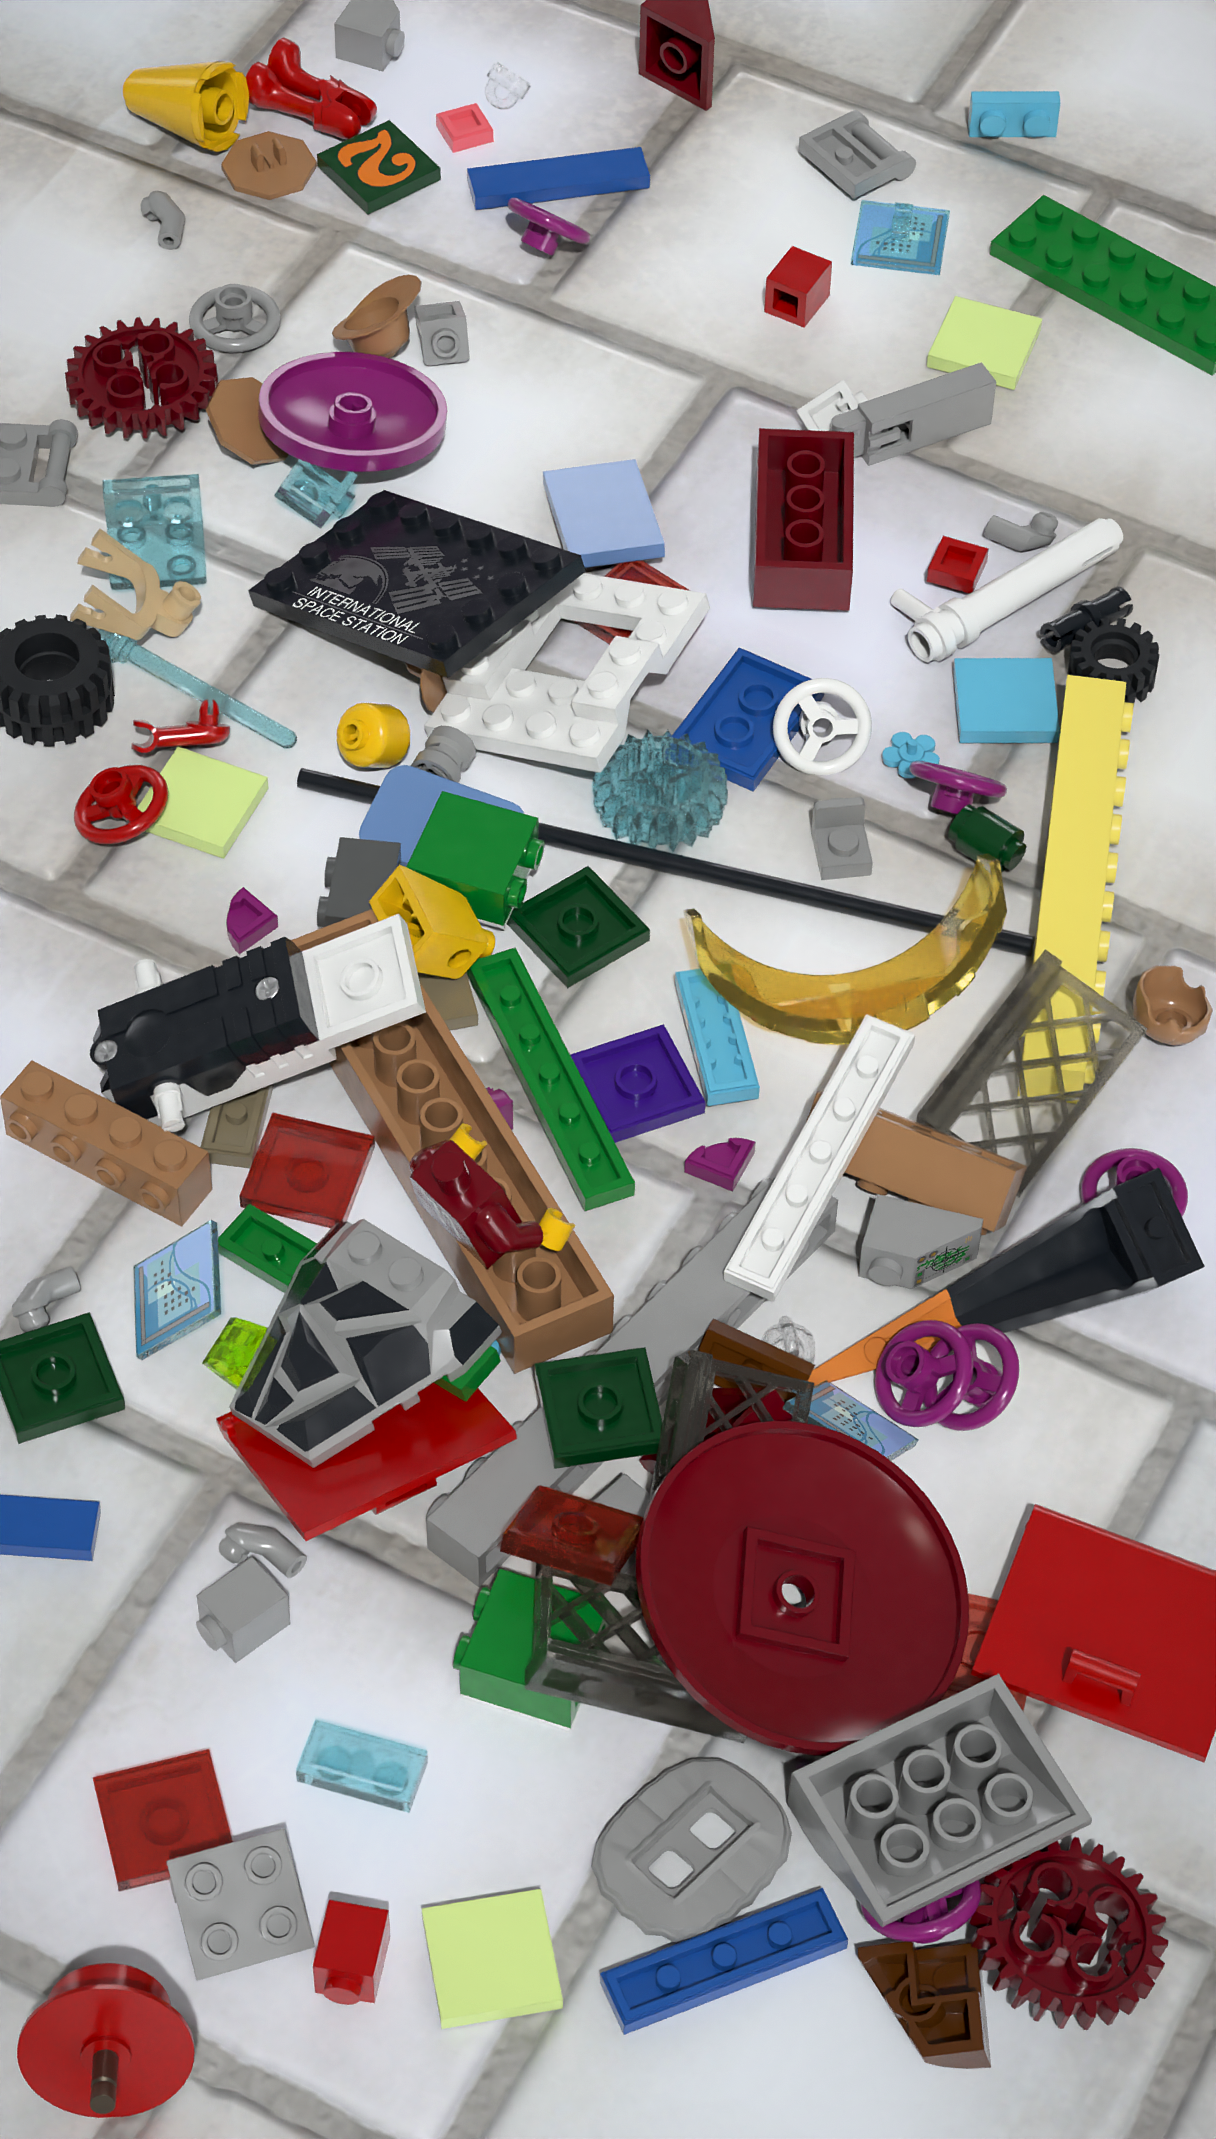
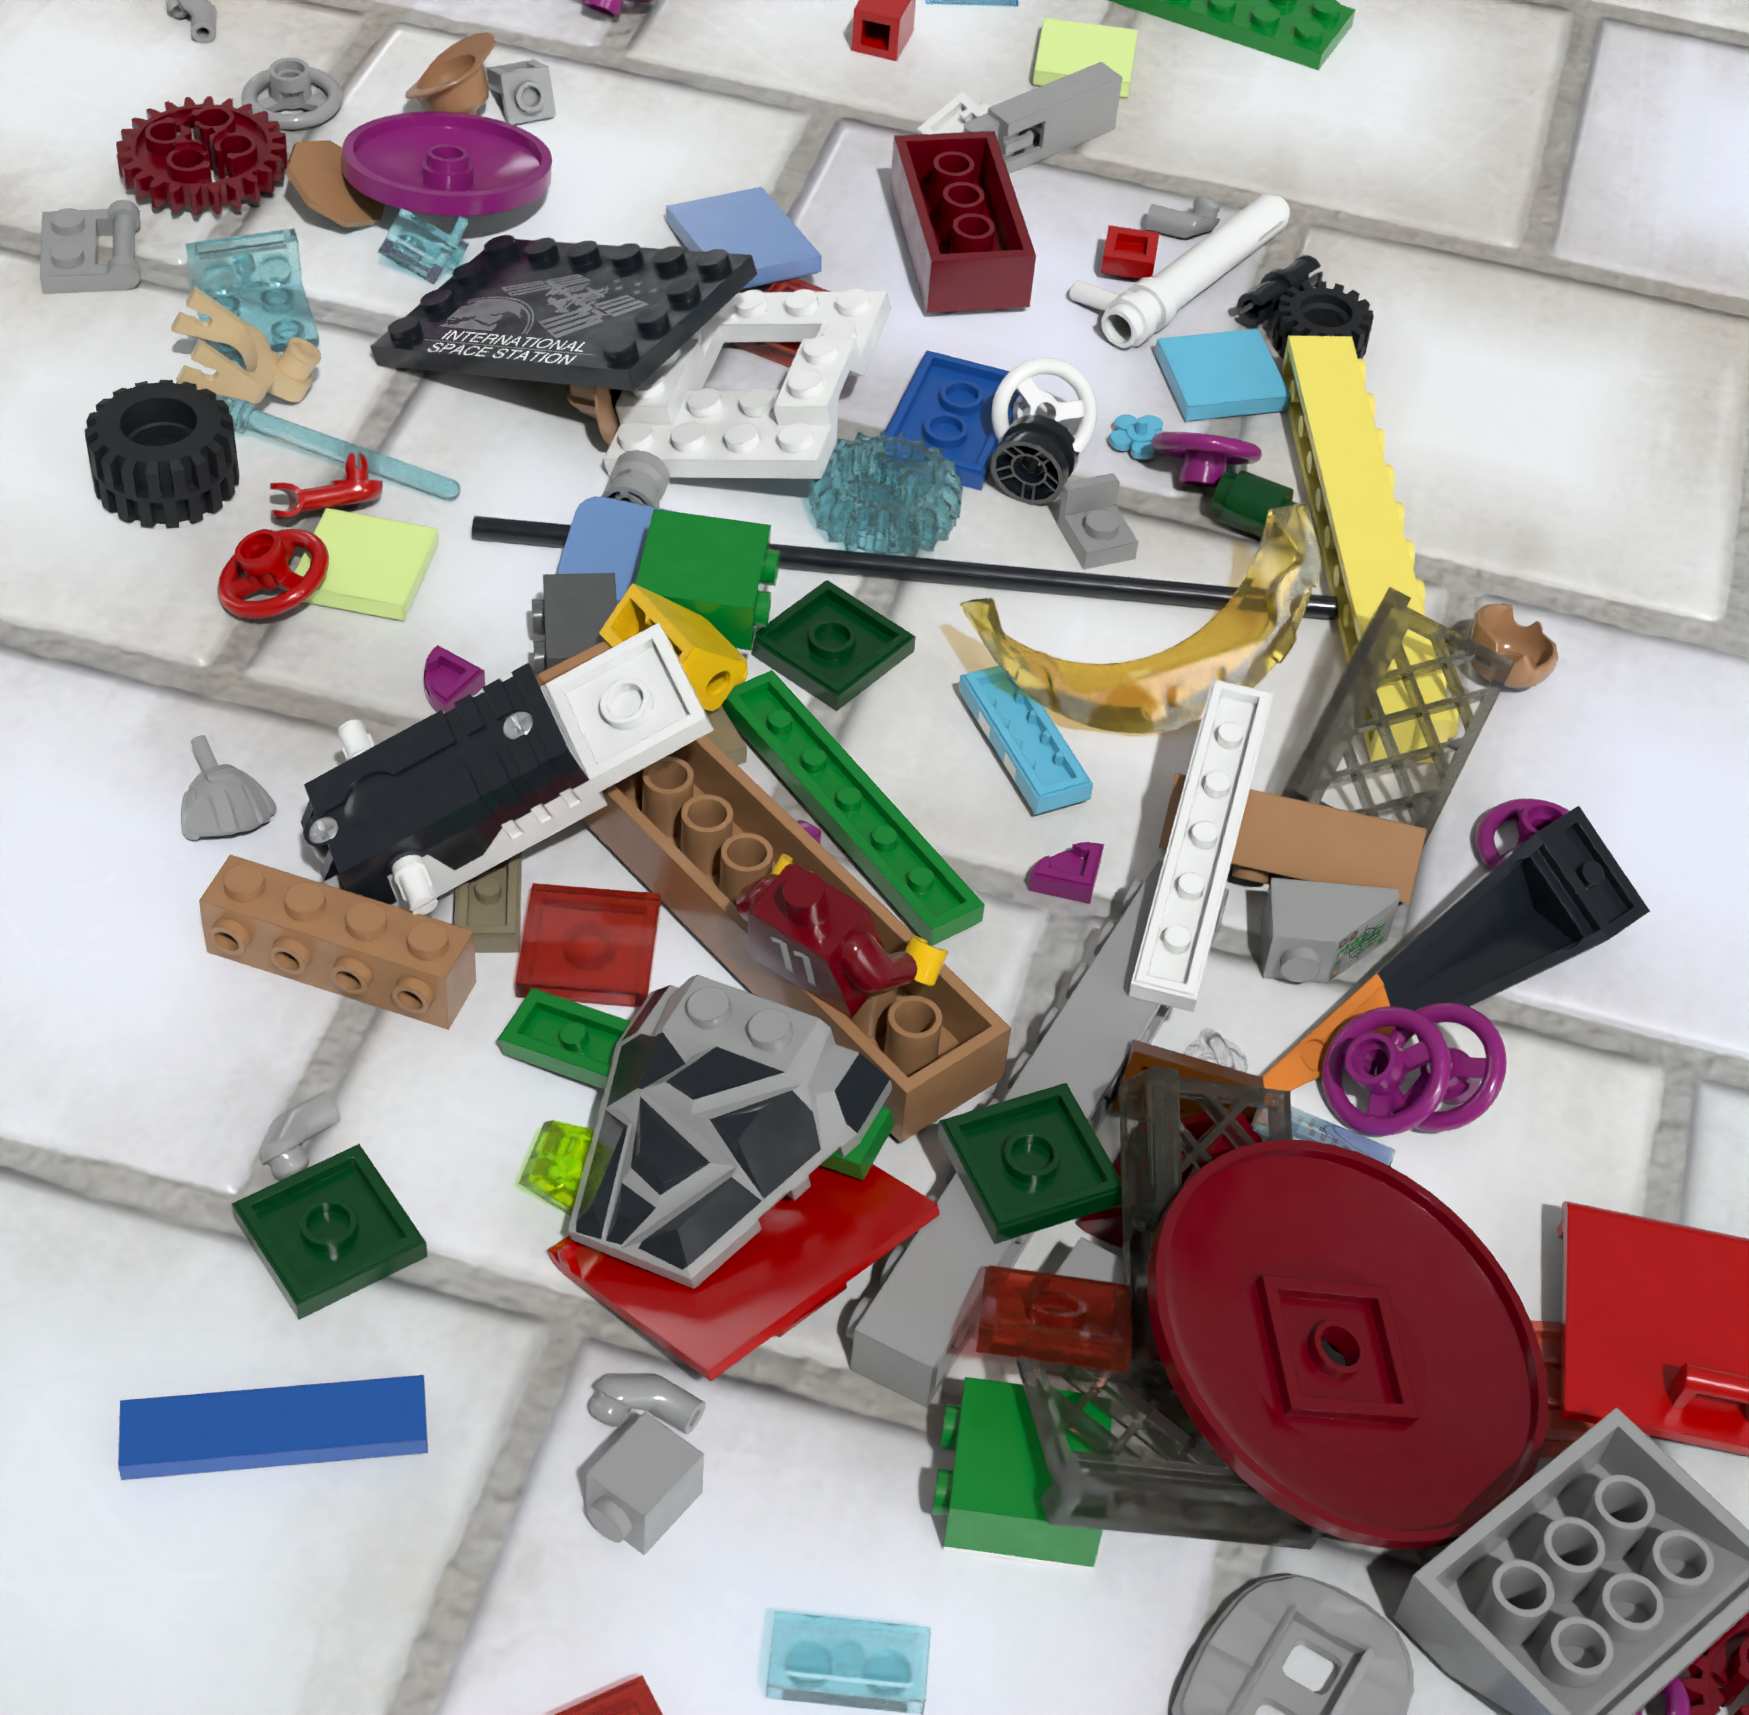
camera: 15 degrees left, 5 degrees down
(41, 1004) = (222, 798): none -> light grey piece
(177, 1290) = (467, 1100): piece -> none
(373, 735) = (551, 471): yellow head -> none
(639, 1083) = (954, 797): dark purple tile -> none
(799, 772) = (1034, 459): none -> black wheel

